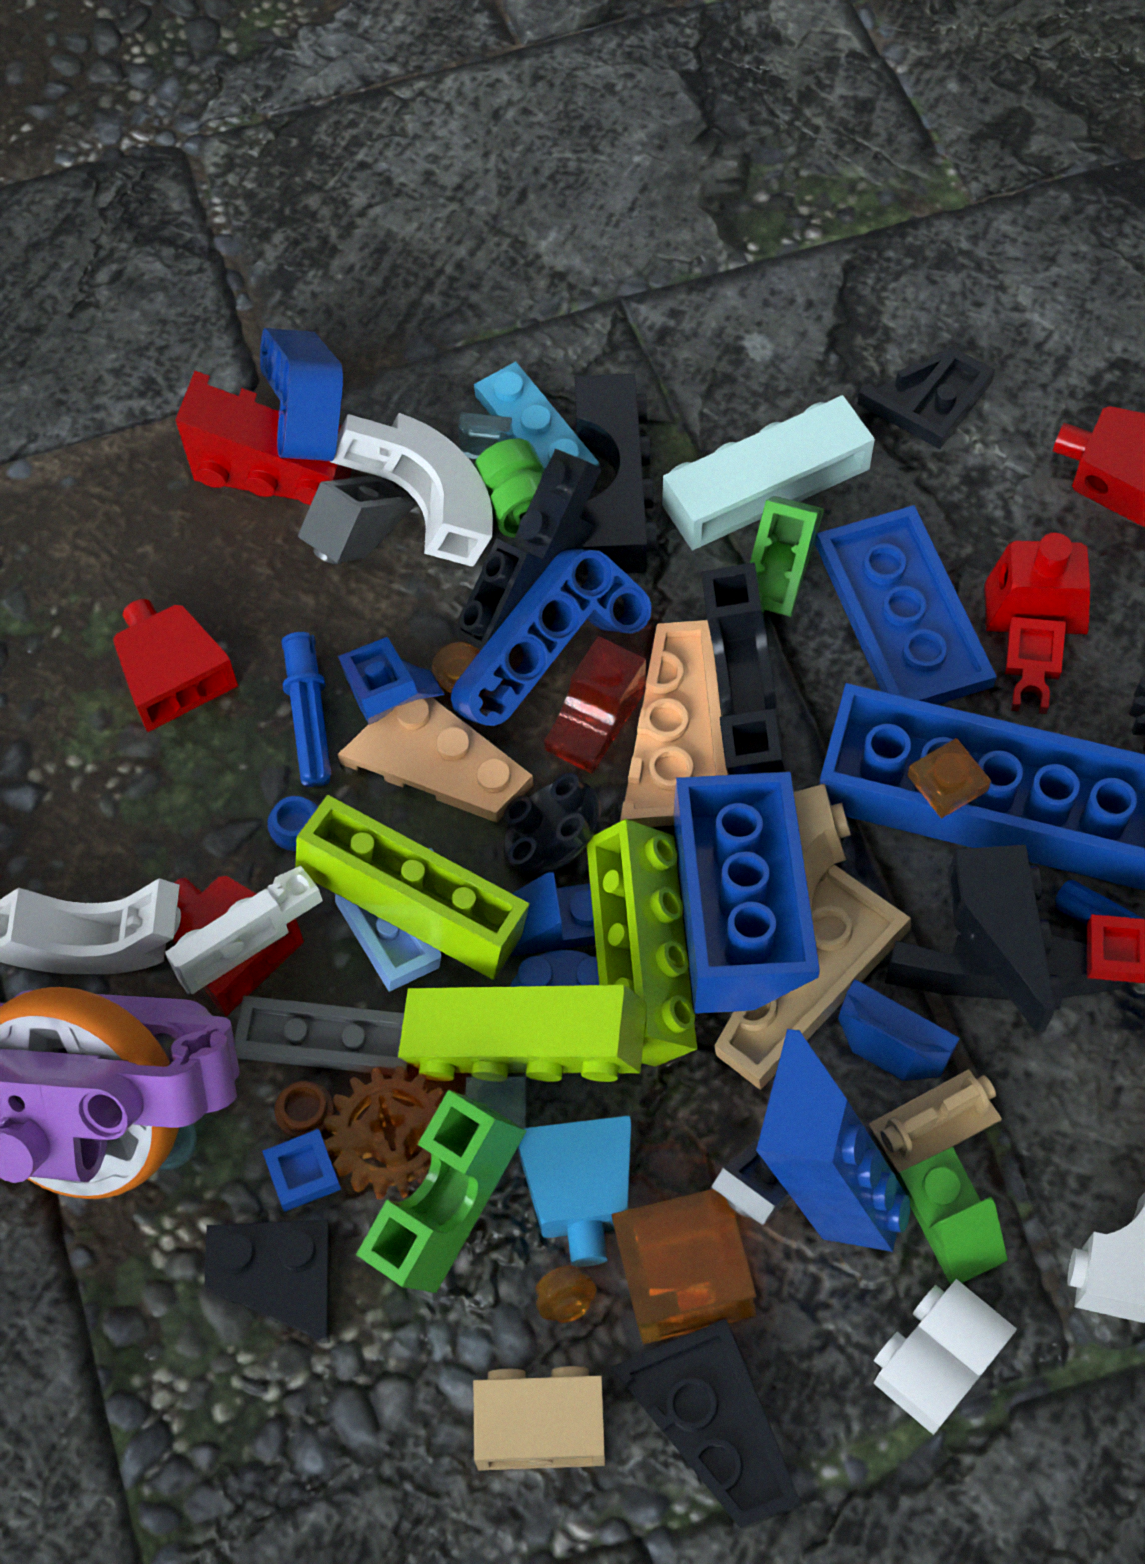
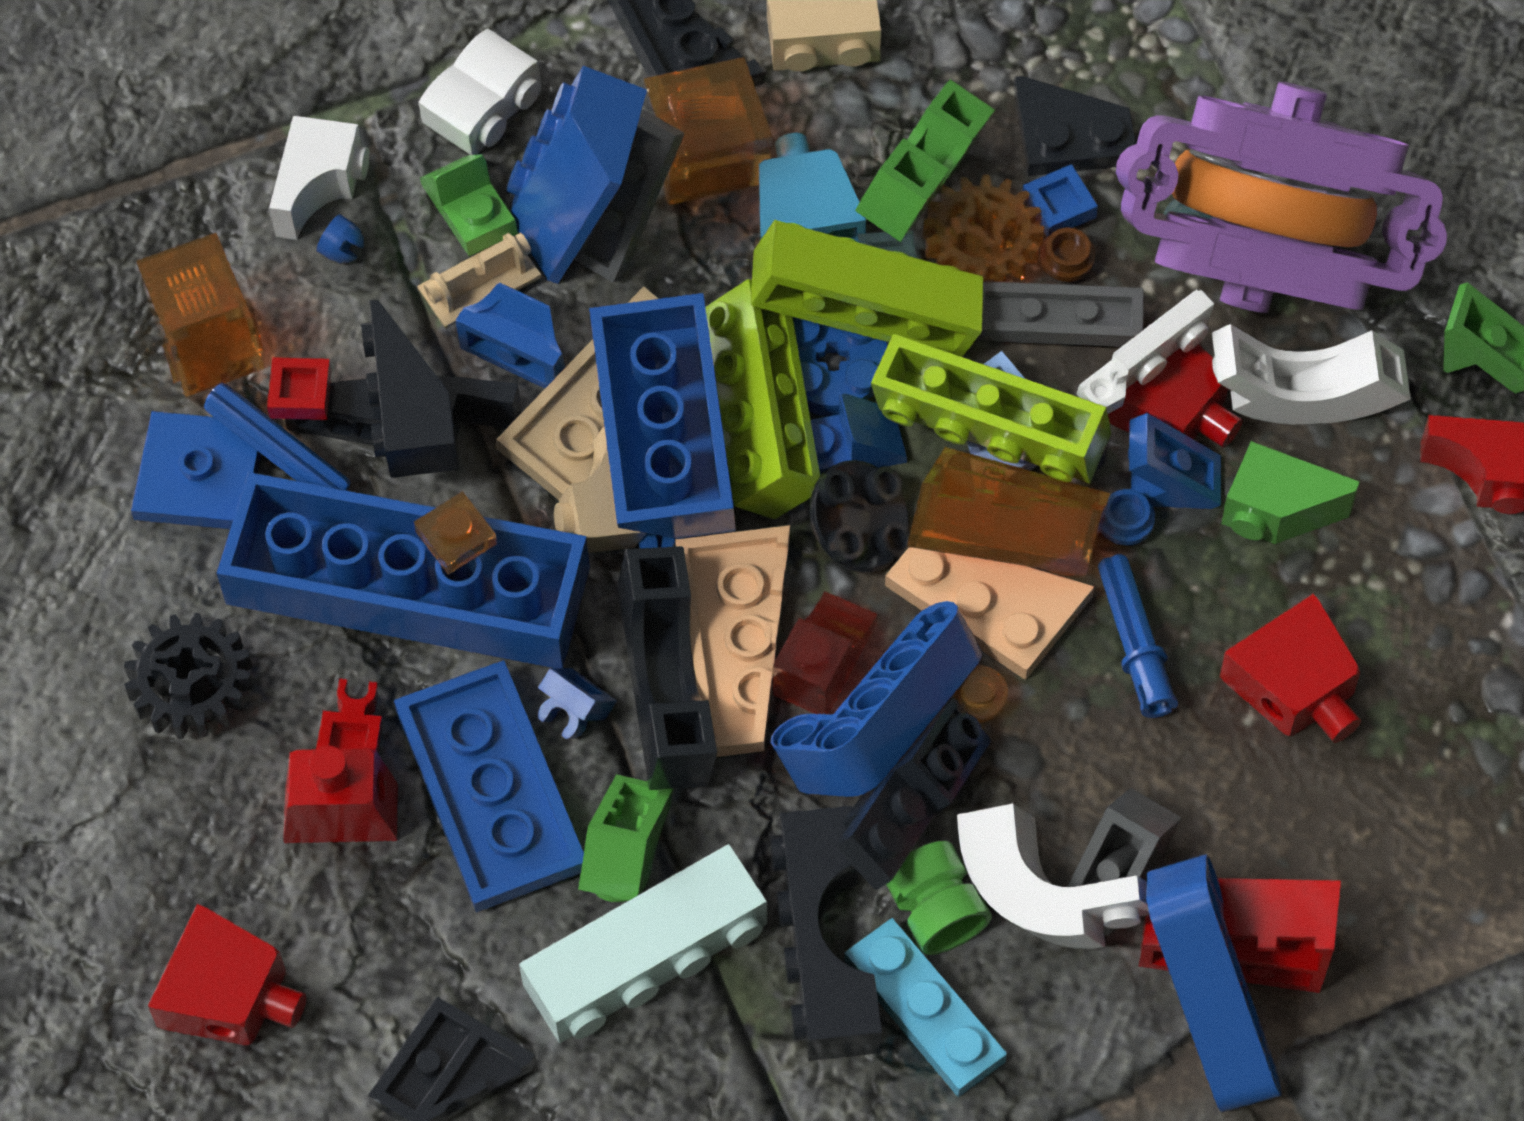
camera: 175 degrees right, 0 degrees up
(141, 823) = (1284, 496): none -> bright green slope
(245, 852) = (1172, 466): none -> blue slope
(385, 680) = (1050, 656): blue slope -> none
(426, 796) = (1007, 515): none -> clear orange wedge
(482, 431) = (982, 971): clear light blue tile -> none
(564, 1294) = (810, 116): clear orange plate -> none
(824, 675) = (577, 696): none -> tile
(1089, 1176) = (338, 239): none -> blue hinge

